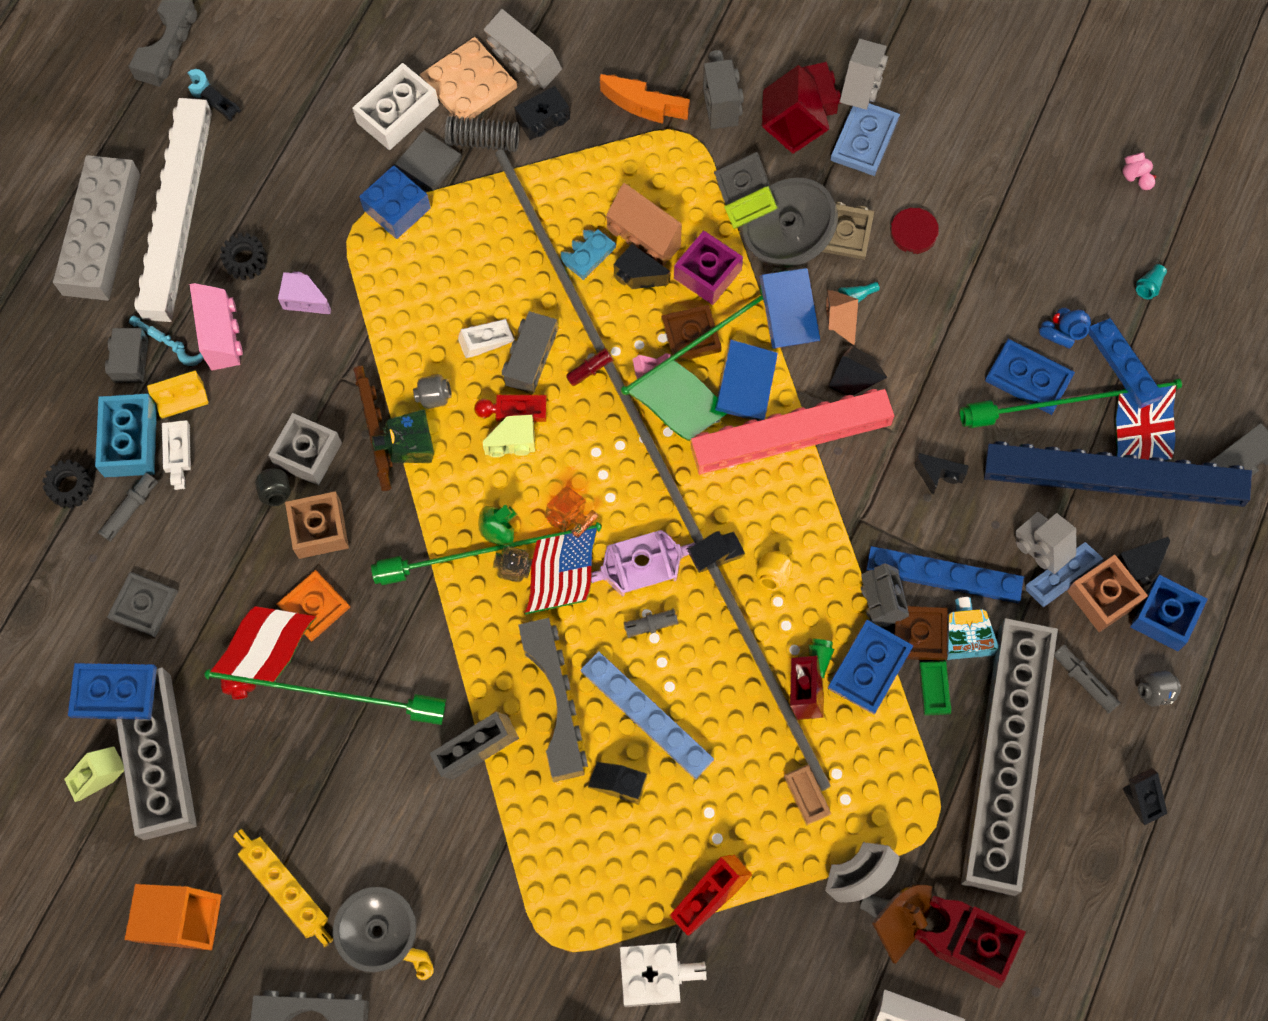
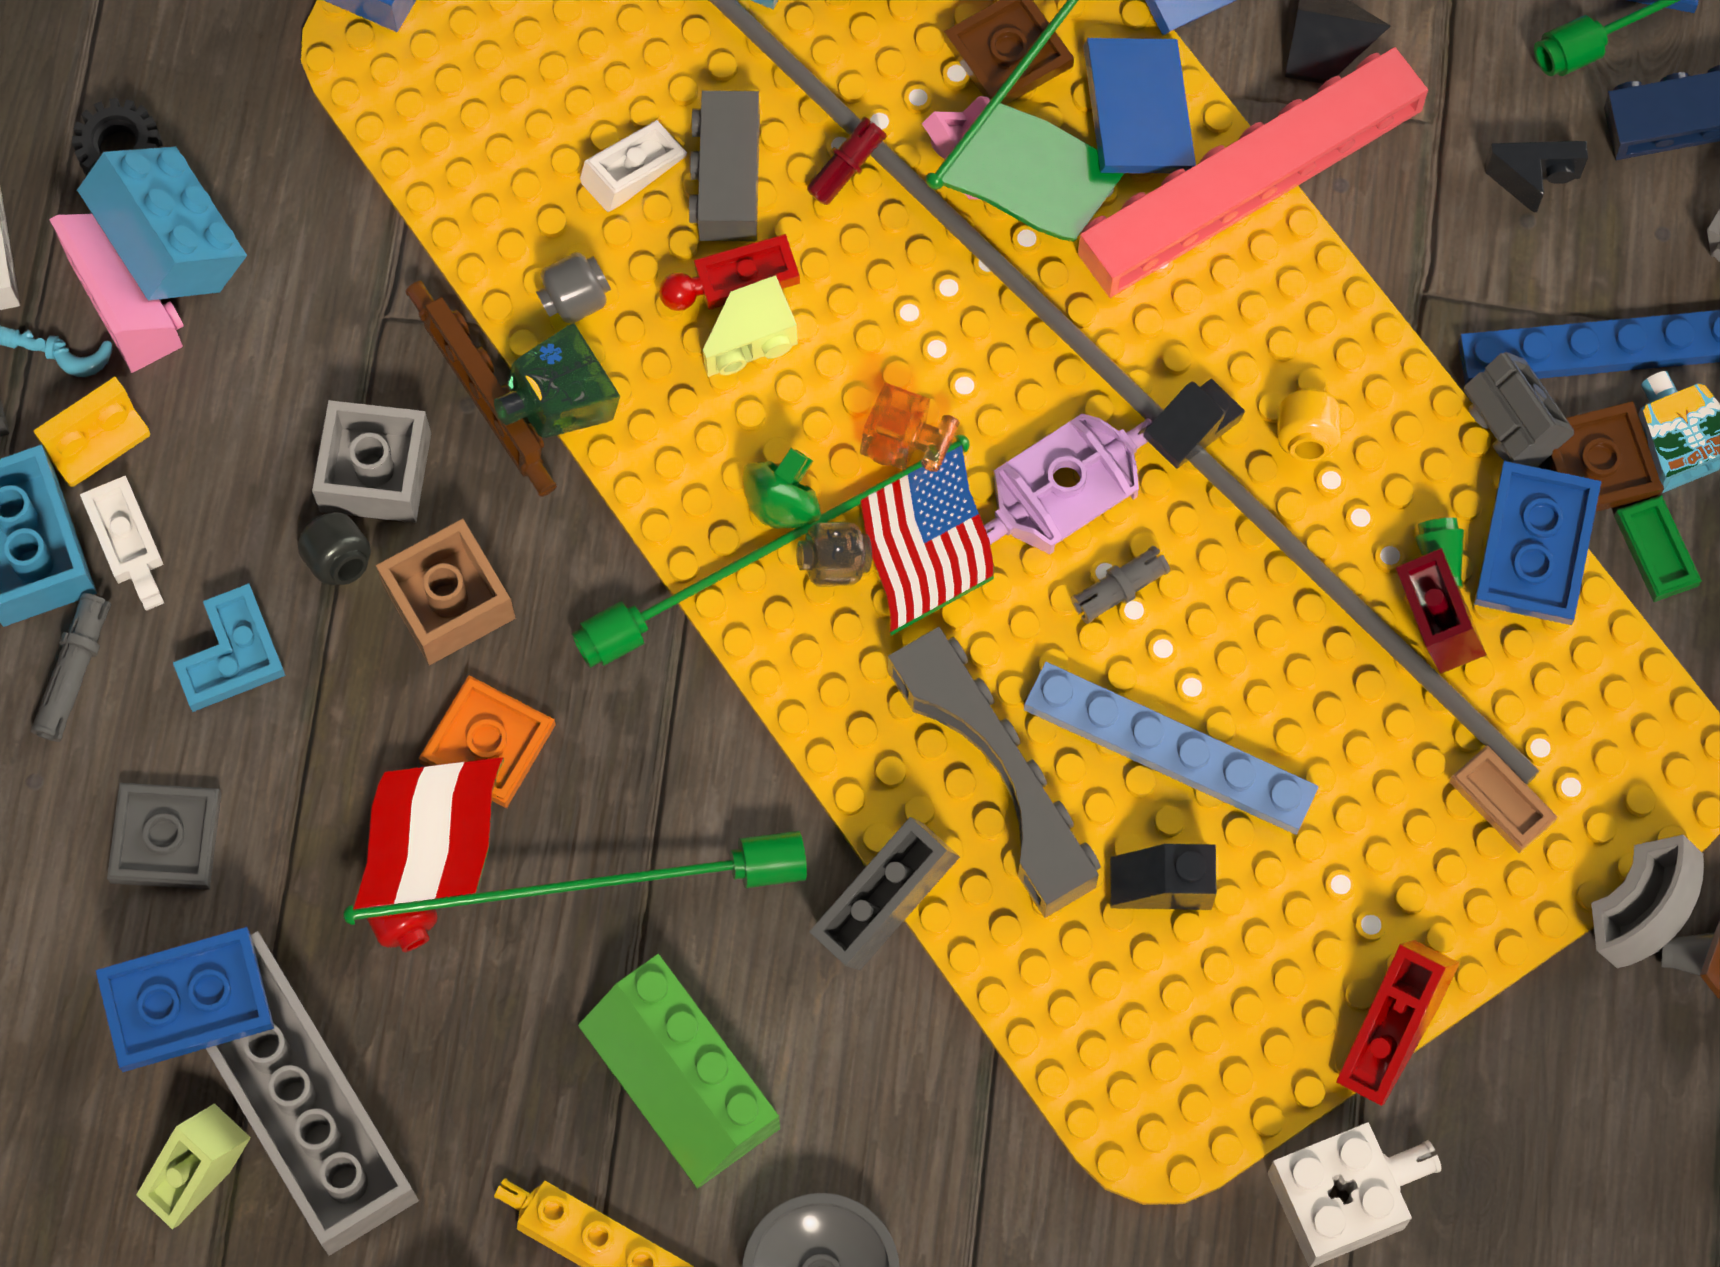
camera: 20 degrees left, 0 degrees up
(210, 528) = (241, 659): none -> dark azure plate
(246, 301) = (161, 222): none -> dark azure brick
(301, 294) = (259, 182): lavender slope -> none
(345, 803) = (679, 1072): none -> bright green slope

